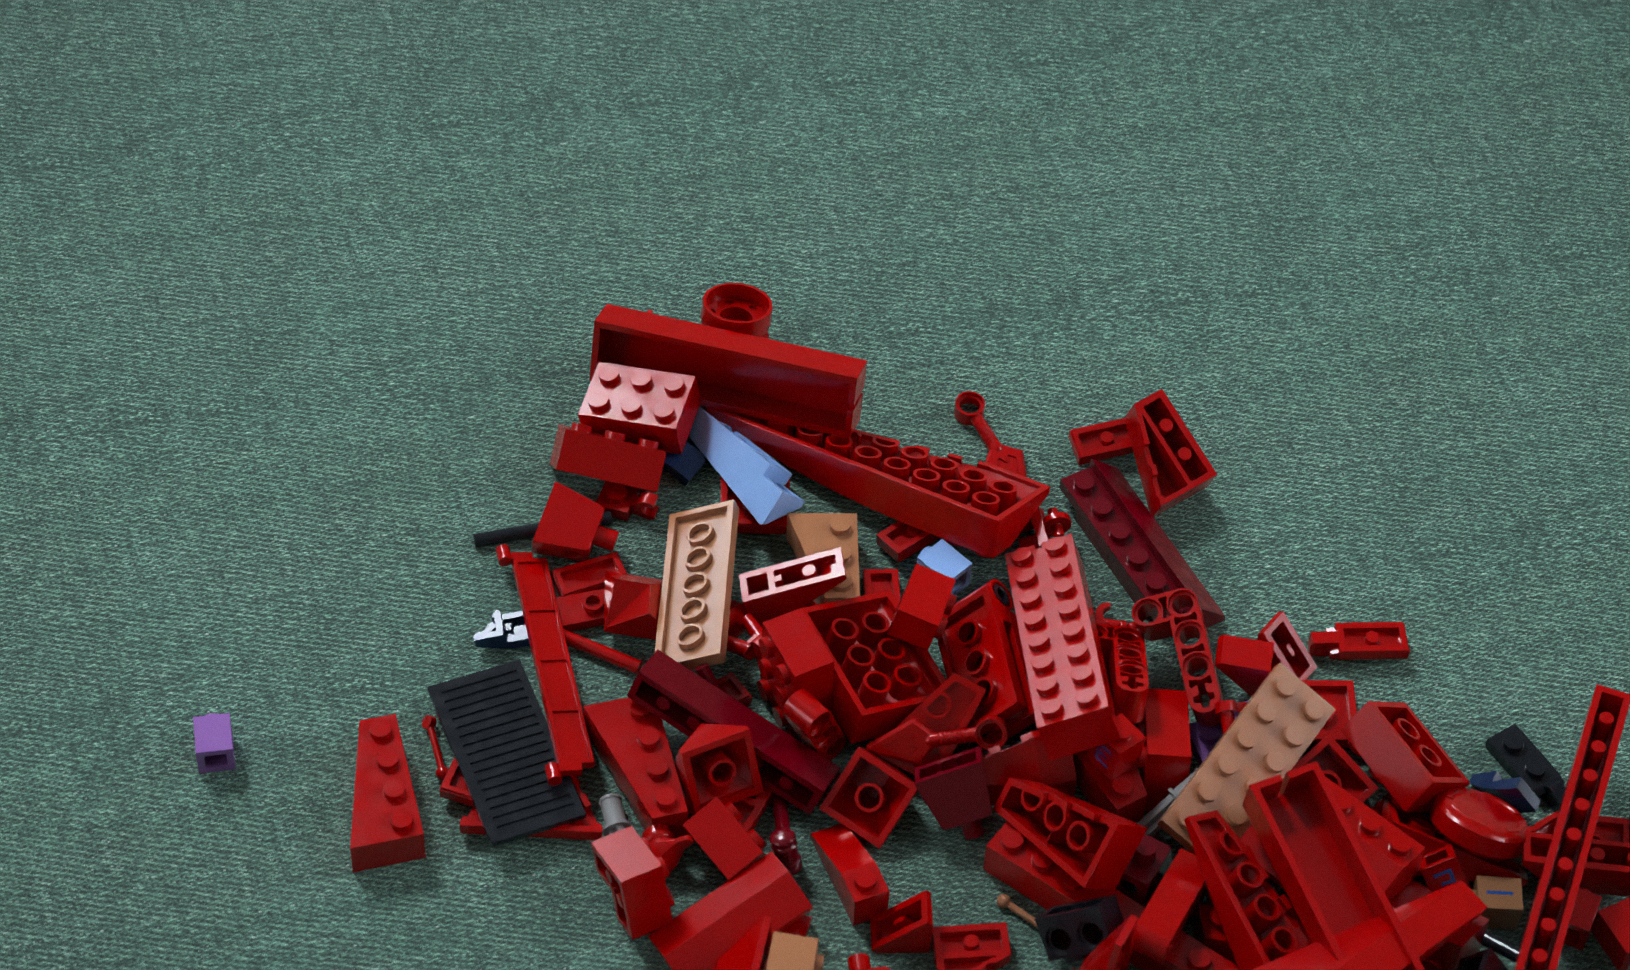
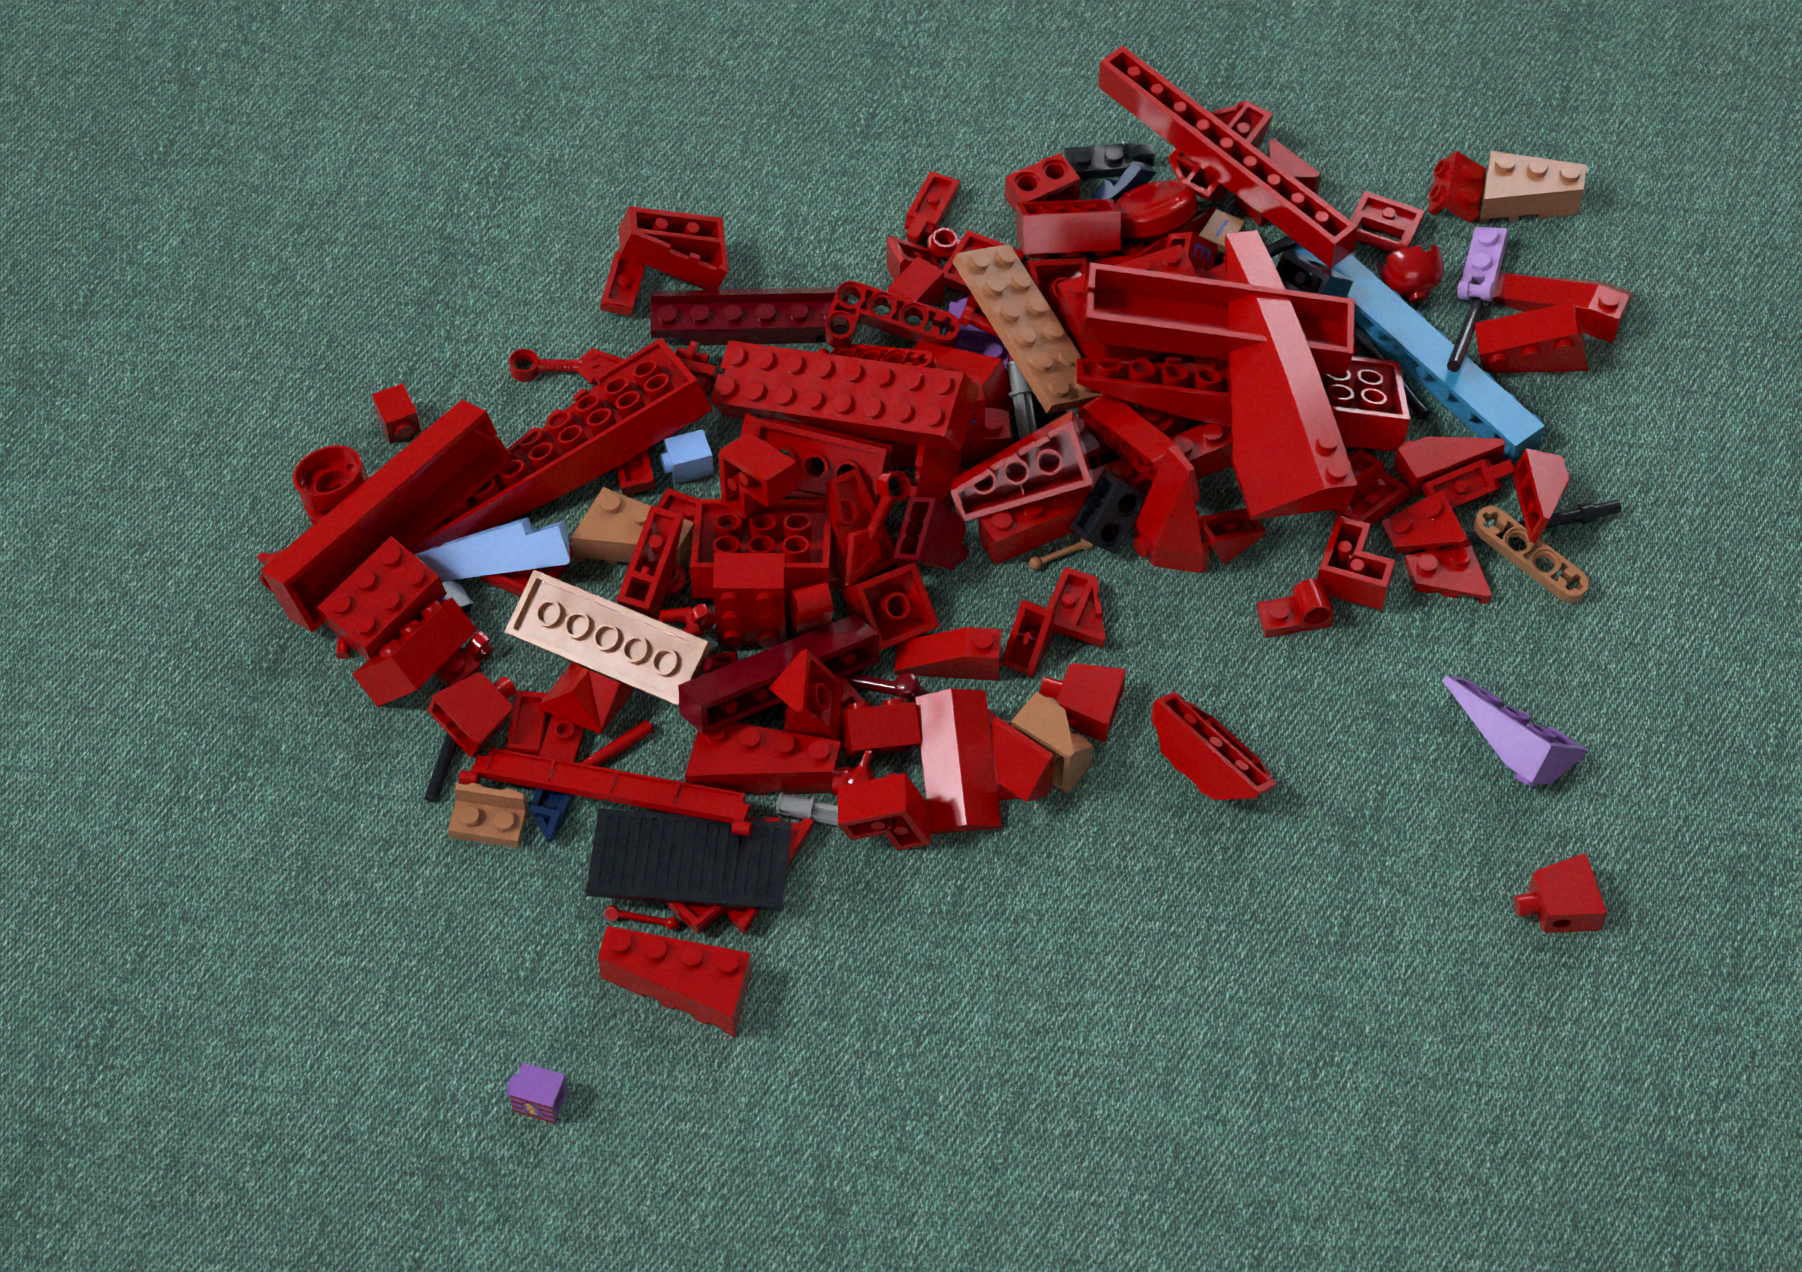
camera: 60 degrees left, 5 degrees up
(476, 588) = (488, 815): none -> nougat bracket
(854, 335) = (396, 413): none -> red brick
(1329, 663) = (943, 242): none -> red plate
(1451, 721) = (1045, 181): none -> red brick

